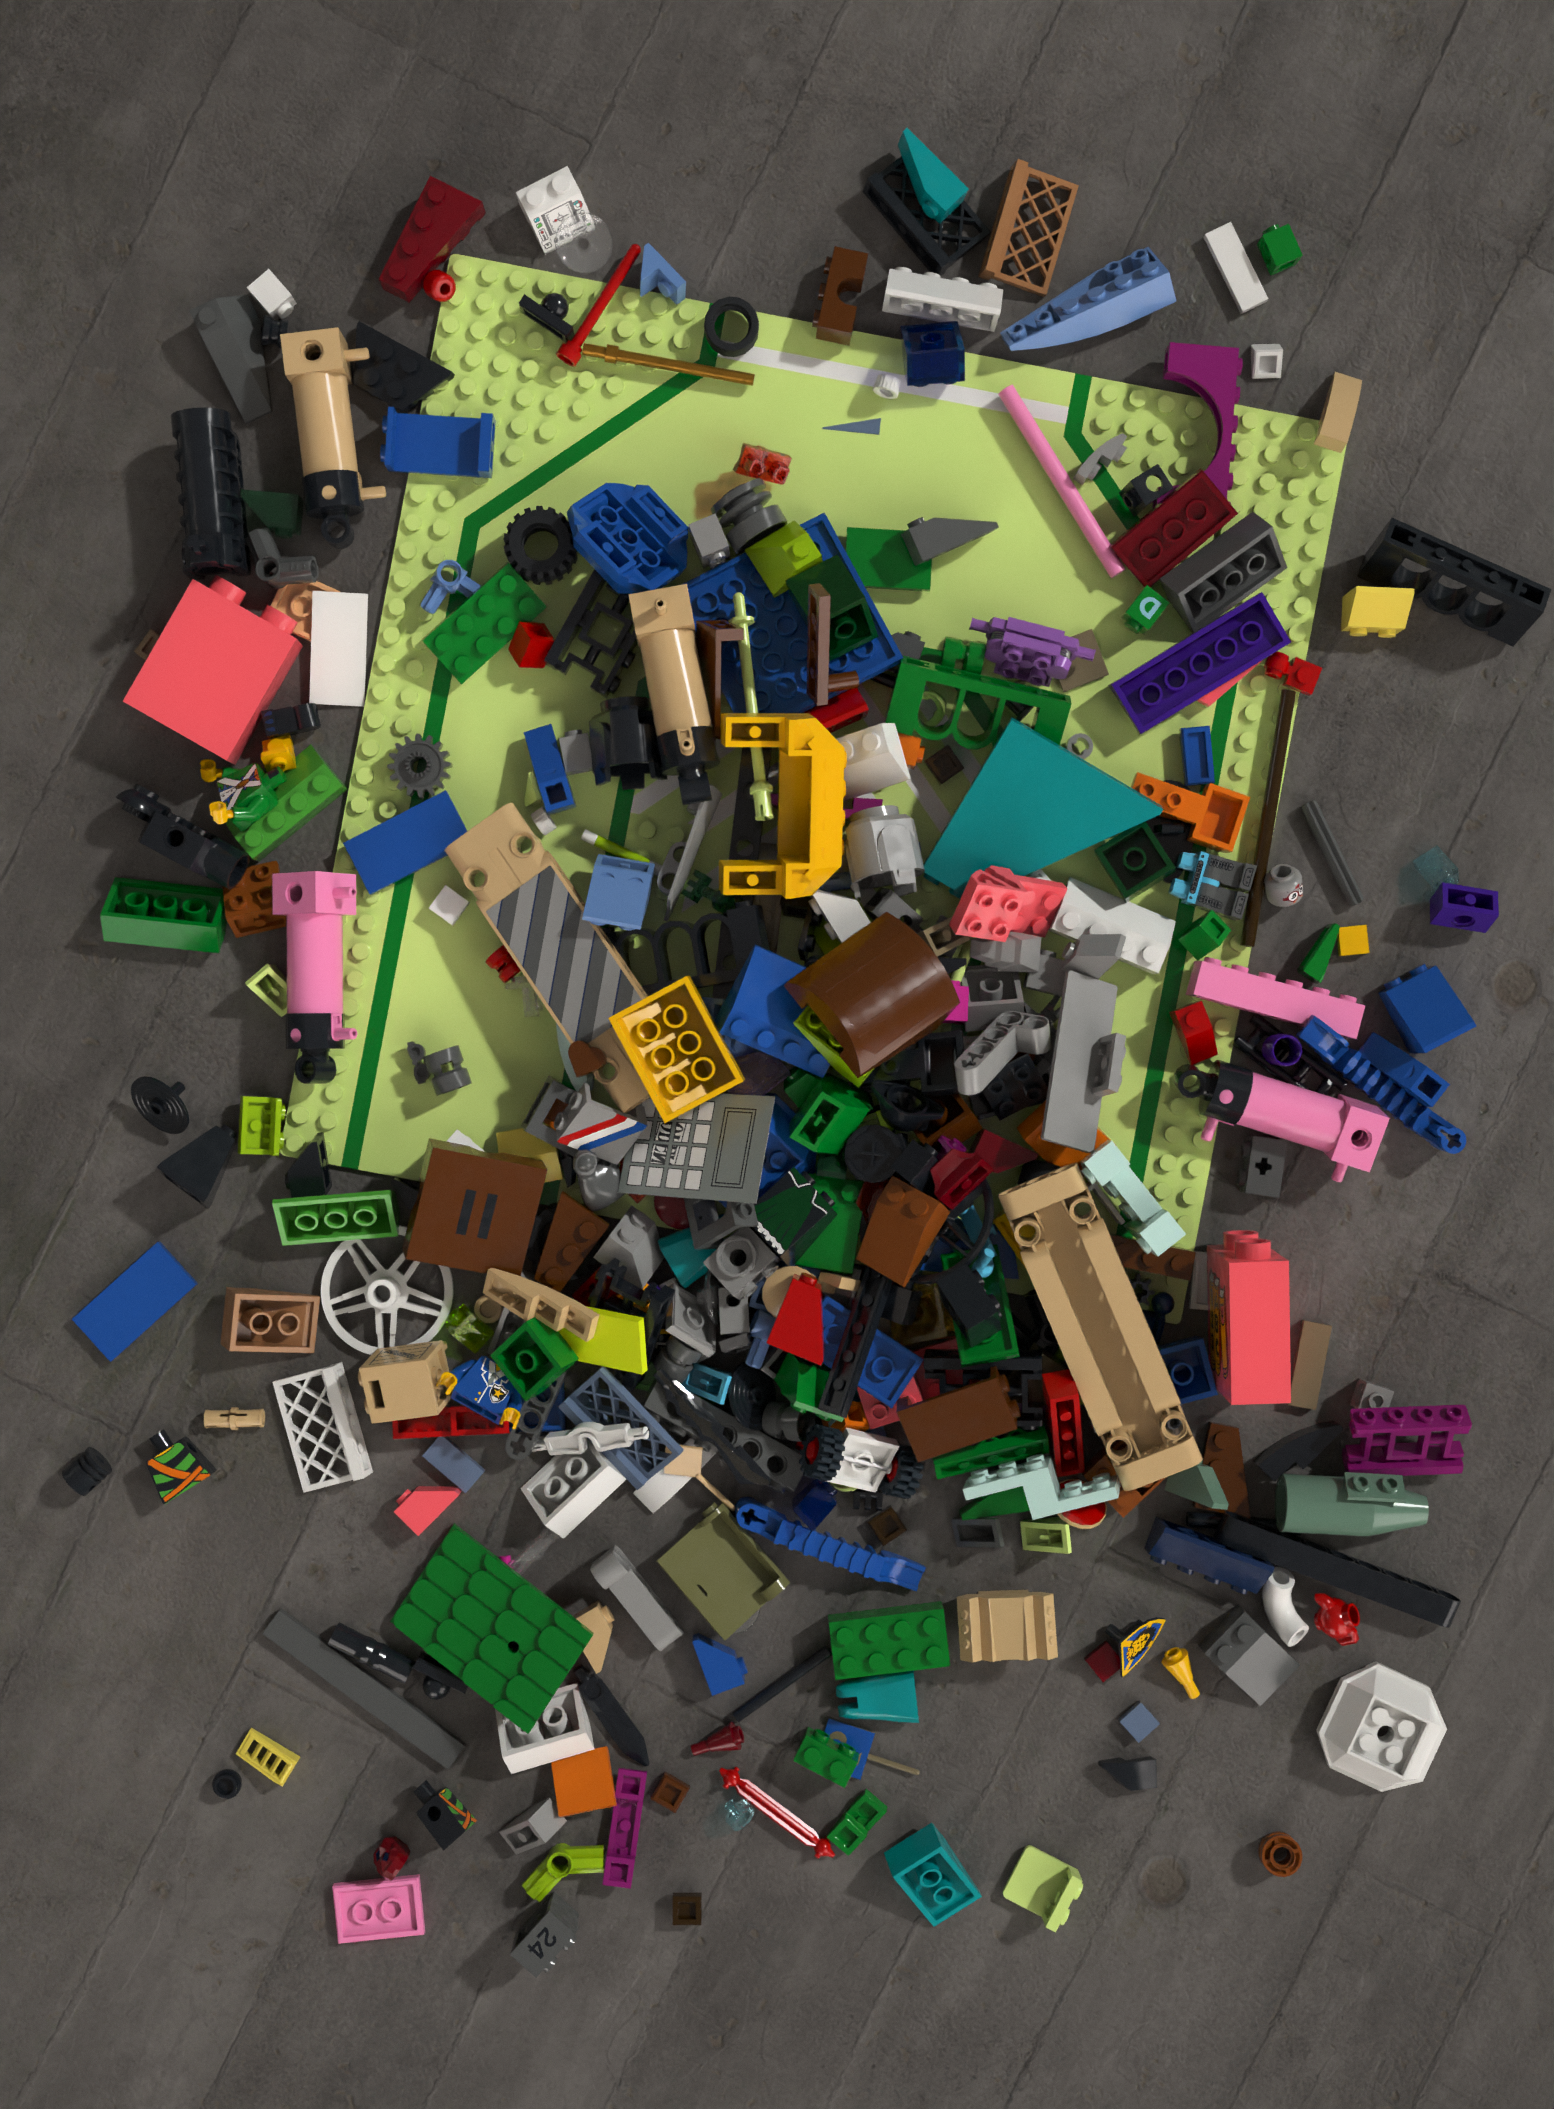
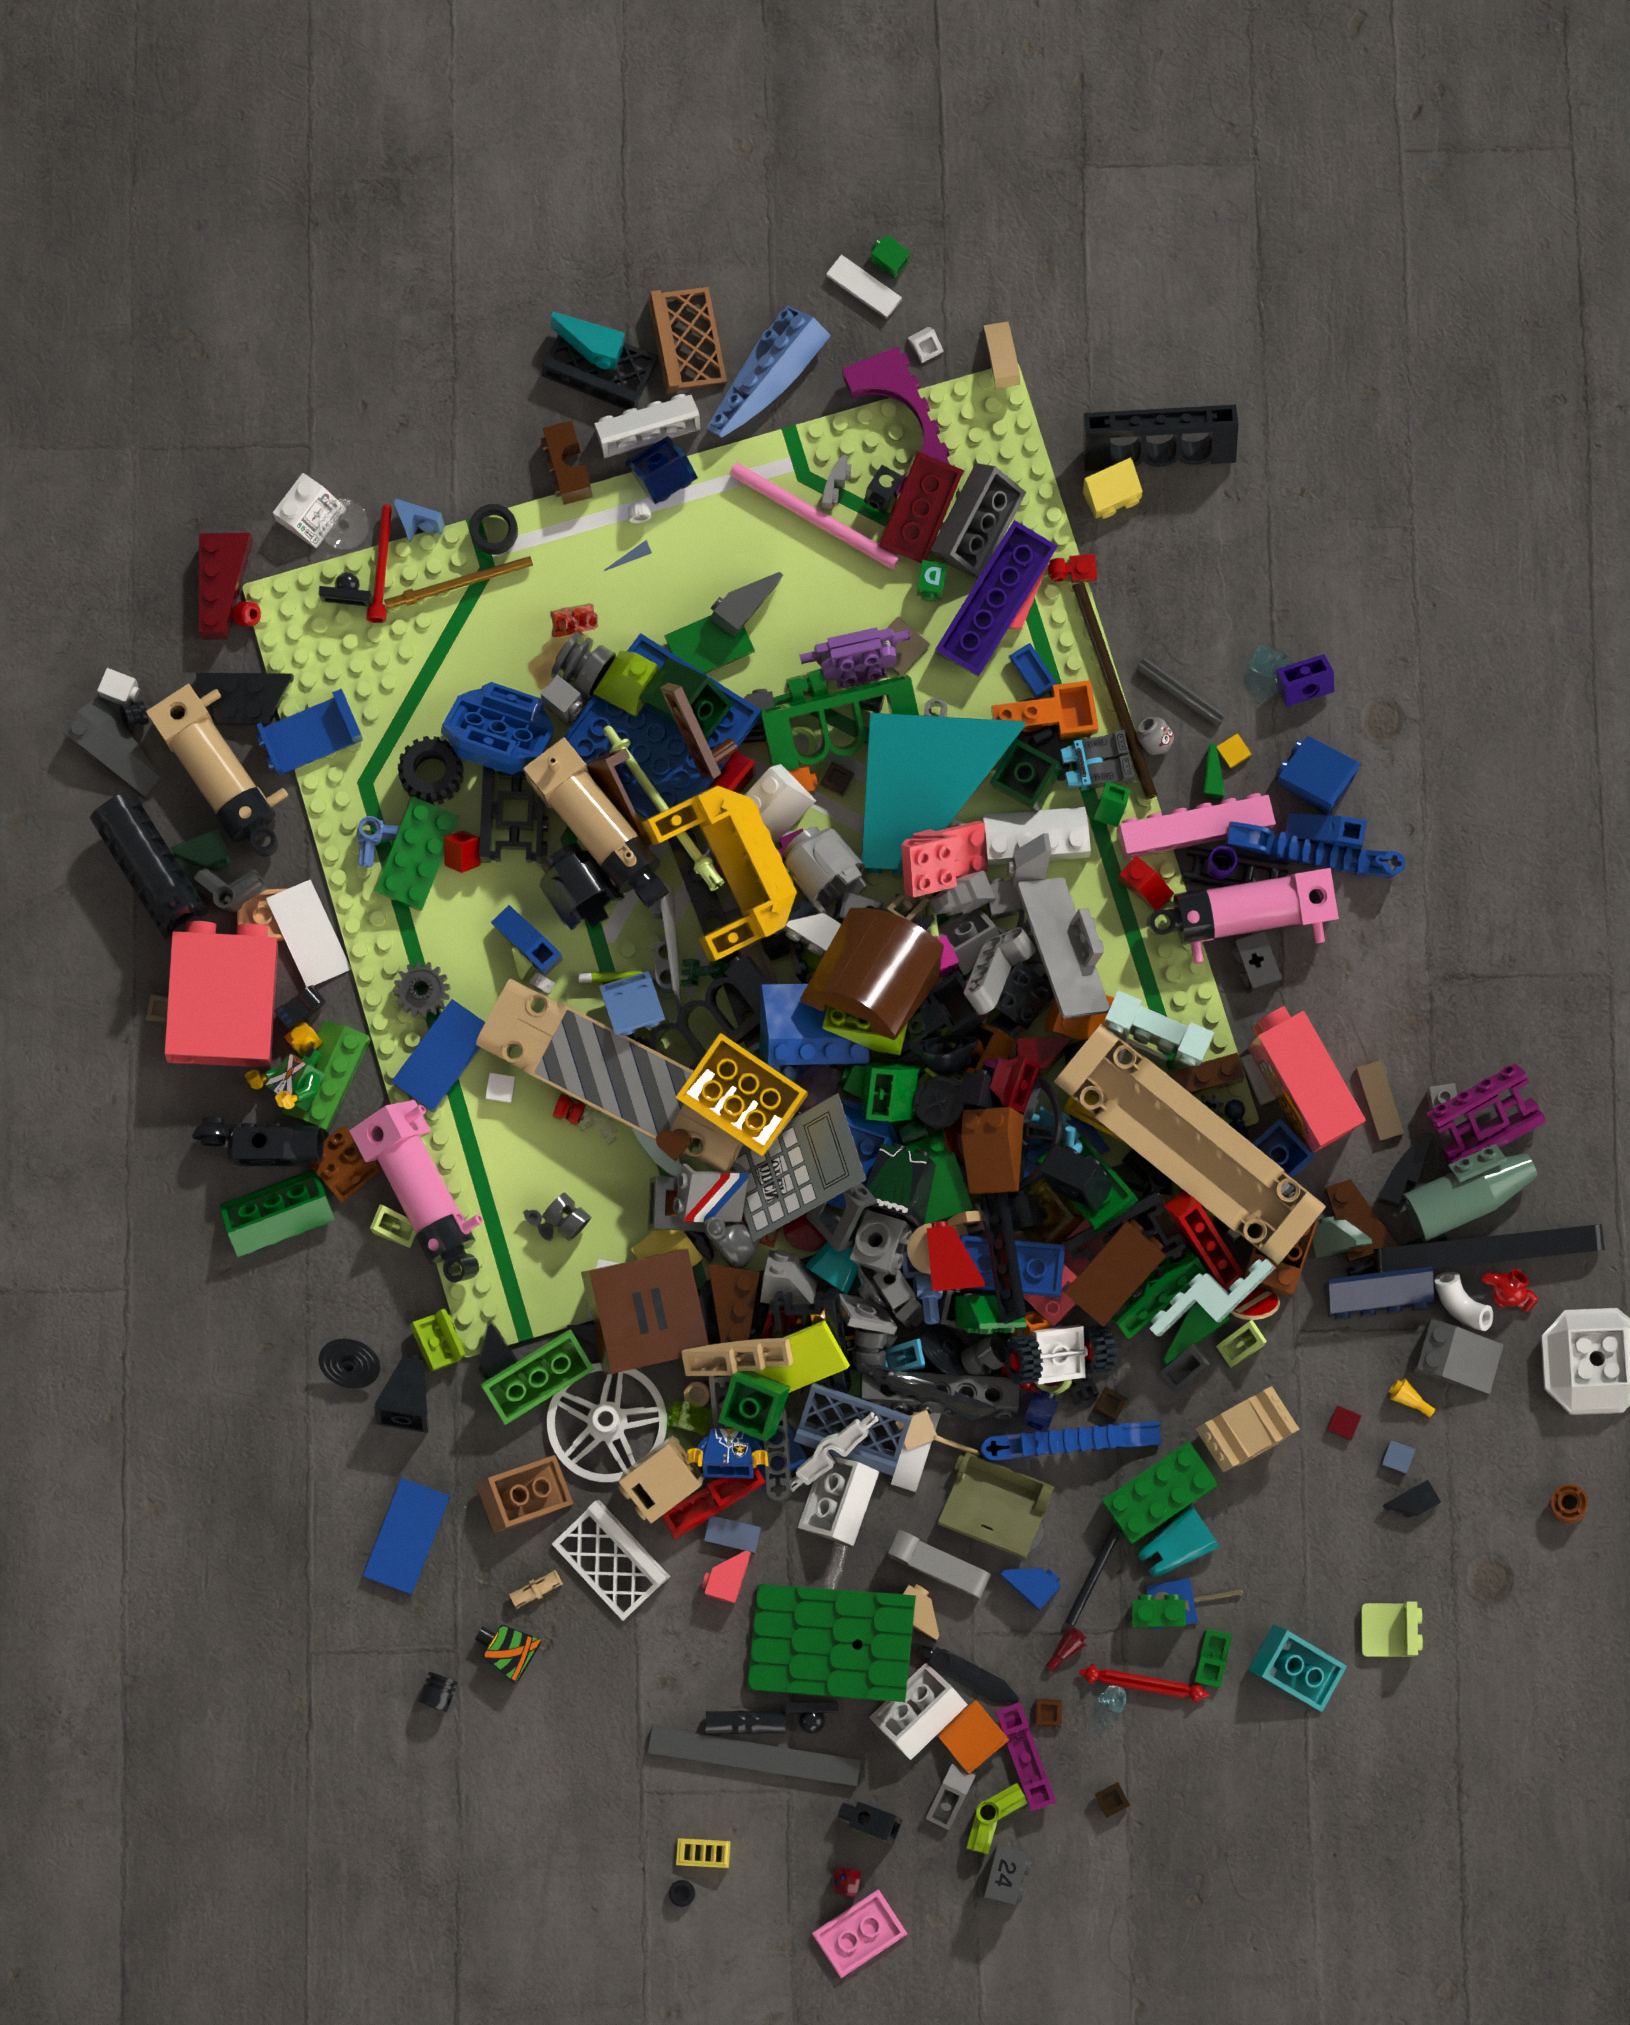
camera: 20 degrees left, 10 degrees down
(576, 752) = (541, 915): light grey brick -> none
(1135, 1641) = (1359, 1391): shield -> none

